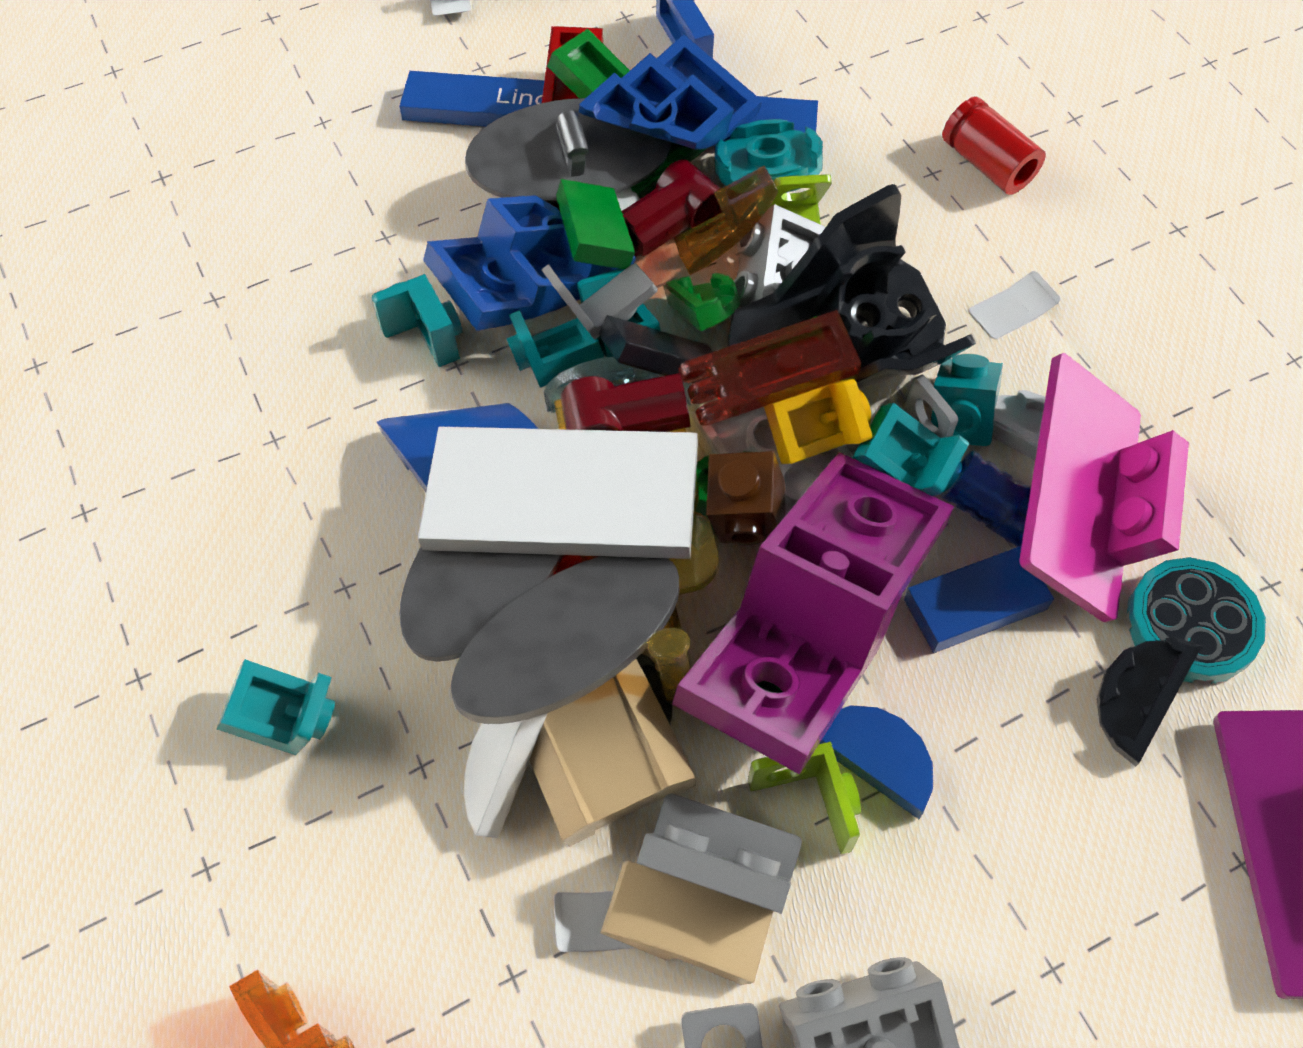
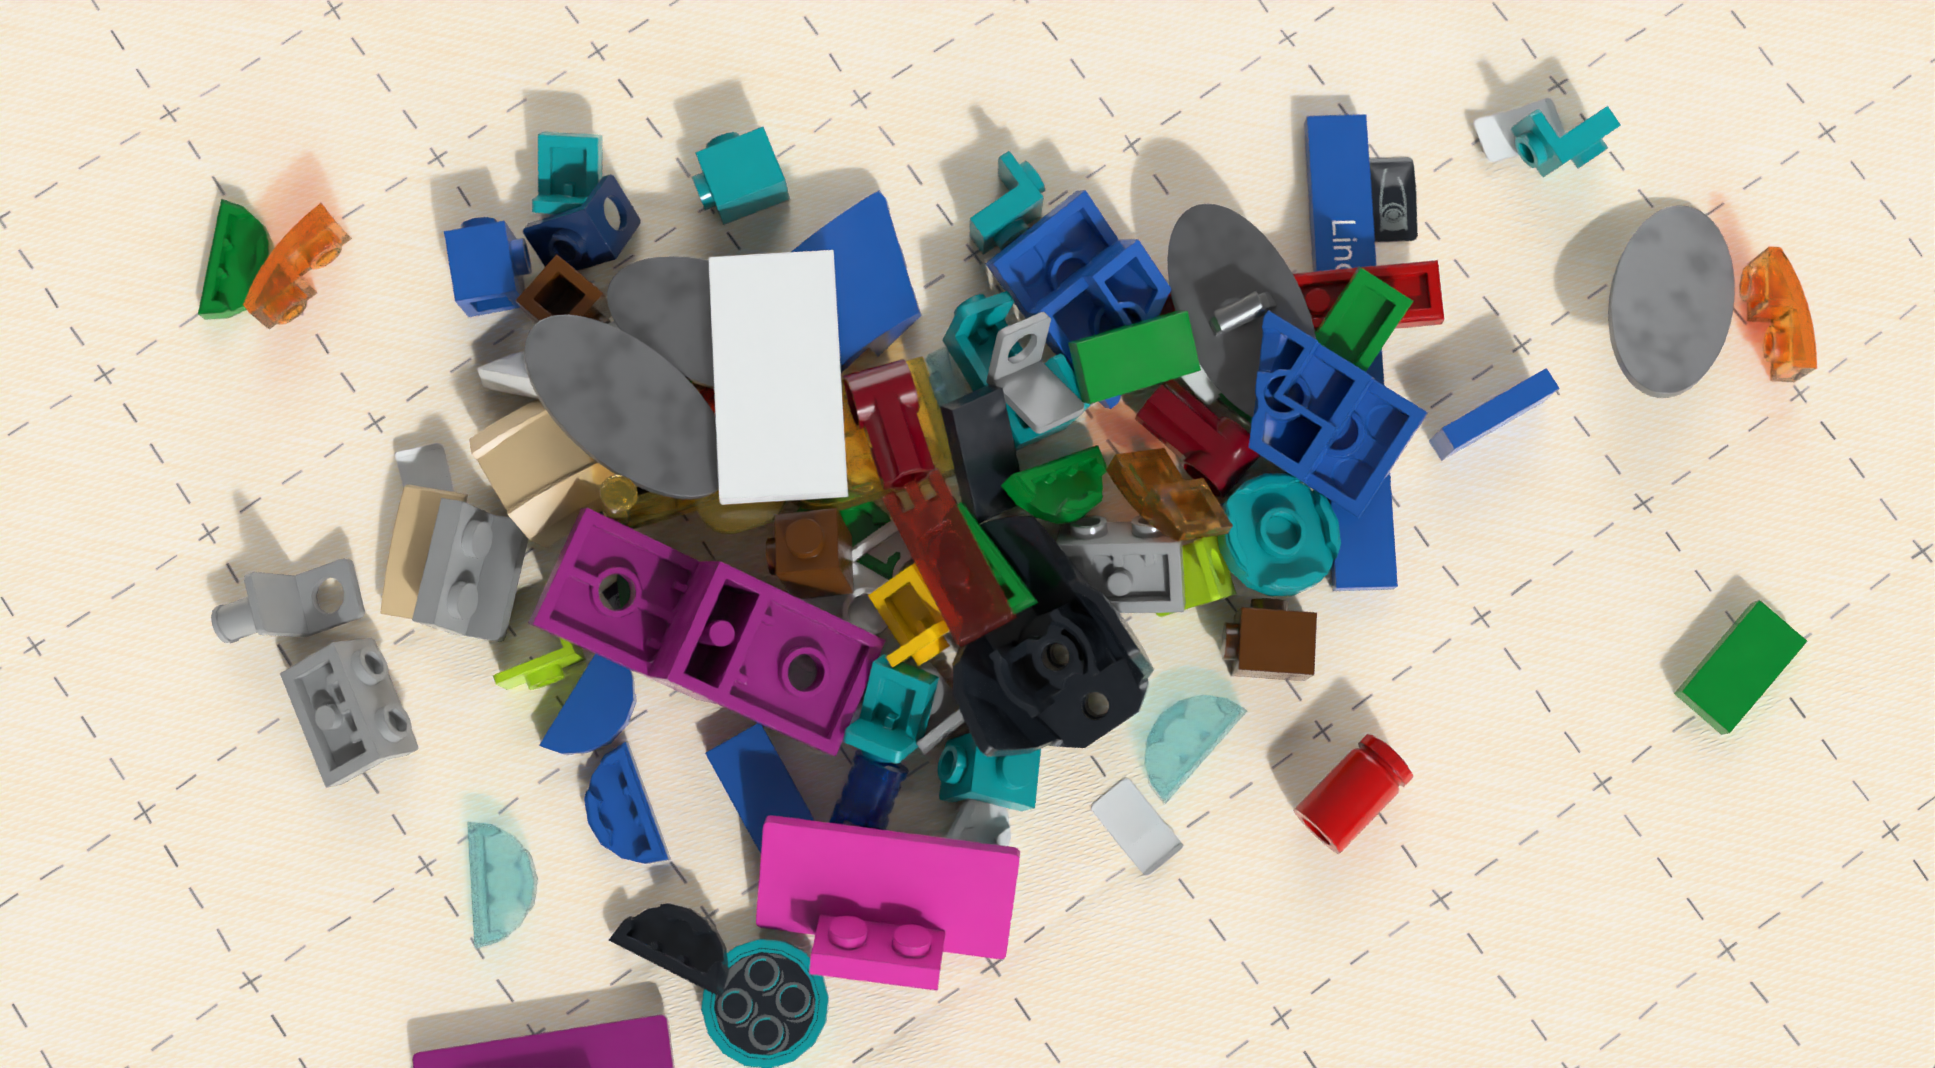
camera: 80 degrees right, 20 degrees up
(324, 537) = (739, 175): none -> teal brick
(350, 703) = (583, 234): none -> dark blue bracket
(357, 808) = (486, 266): none -> blue brick
(424, 717) = (563, 292): none -> reddish brown brick
(485, 67) = (1394, 199): none -> black sticker
(861, 169) = (1271, 641): none -> reddish brown brick
(943, 257) = (1185, 738): none -> clear light blue tile
(992, 739) = (621, 810): none -> blue tile
(1077, 876) = (501, 883): none -> clear light blue tile

